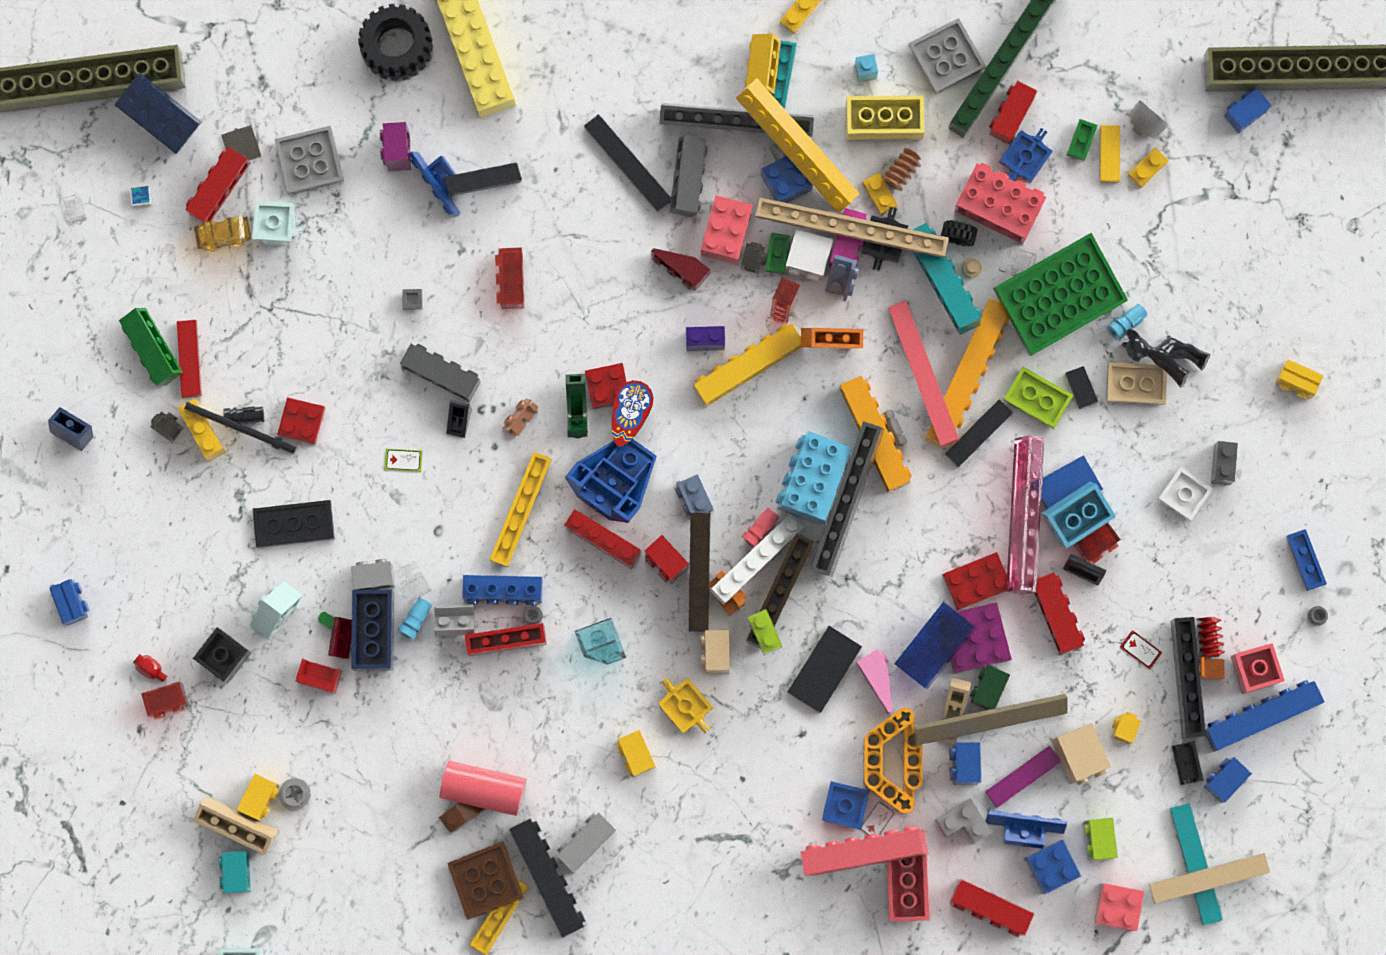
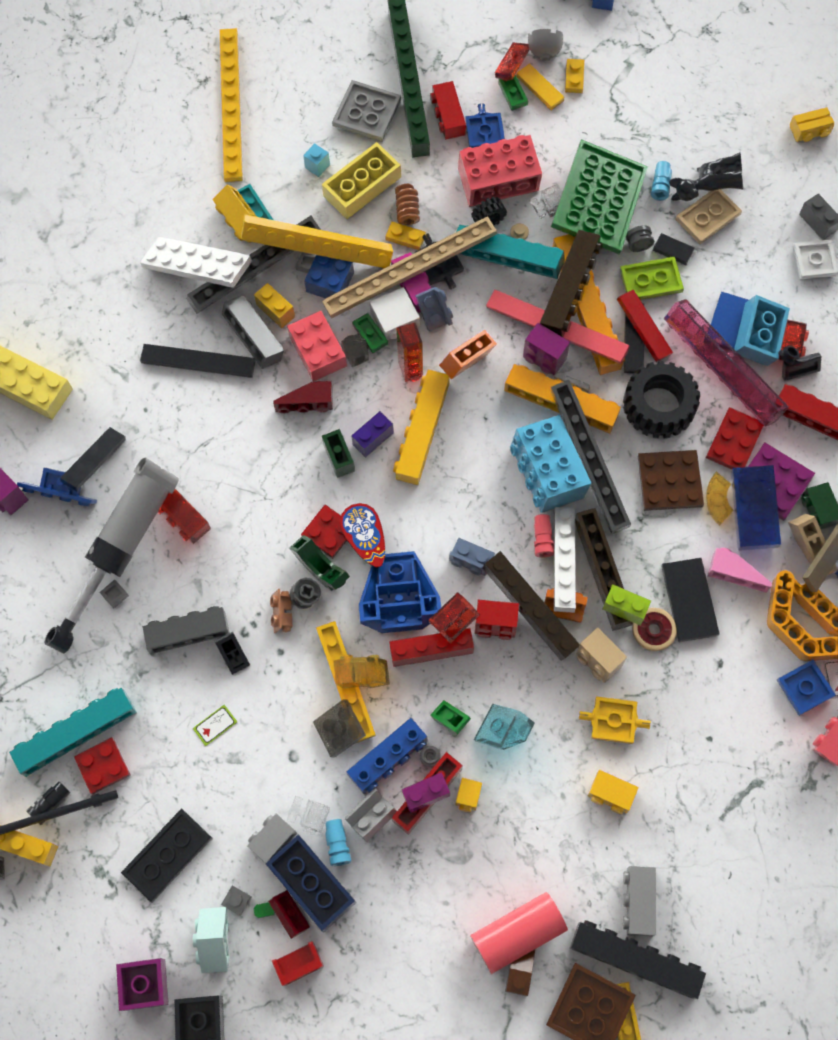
camera: 40 degrees left, 10 degrees down
(204, 598) = (142, 984): none -> magenta brick
(300, 379) = (72, 732): none -> teal brick
(314, 596) = (236, 900): none -> flat silver plate
(446, 263) = (118, 540): none -> piece
(485, 539) = (339, 728): none -> clear smoke plate
(501, 638) = (426, 792): none -> magenta brick
(534, 666) = (468, 795): none -> yellow brick
(536, 513) = (361, 671): none -> clear yellow brick
(548, 419) = (305, 592): none -> dark grey wheel
(570, 601) = (450, 717): none -> green slope
(632, 532) = (454, 617): none -> clear red brick
(665, 332) = (338, 453): none -> dark green brick
(692, 80) = (196, 262): none -> white plate
(723, 167) = (274, 305): none -> yellow brick
(782, 679) = (658, 641): none -> wheel
(896, 385) = (546, 349): none -> magenta brick
(897, 568) = (670, 480): none -> reddish brown plate
(919, 613) = (717, 498): none -> clear yellow tile
(961, 479) = (668, 378): none -> black tyre
(963, 349) = (571, 282): none -> dark brown brick
(993, 431) = (644, 325): none -> red tile
(1059, 356) = (640, 238): none -> dark grey wheel
(1082, 553) = (789, 354): none -> black plate
(1104, 112) = (512, 61): none -> clear red plate

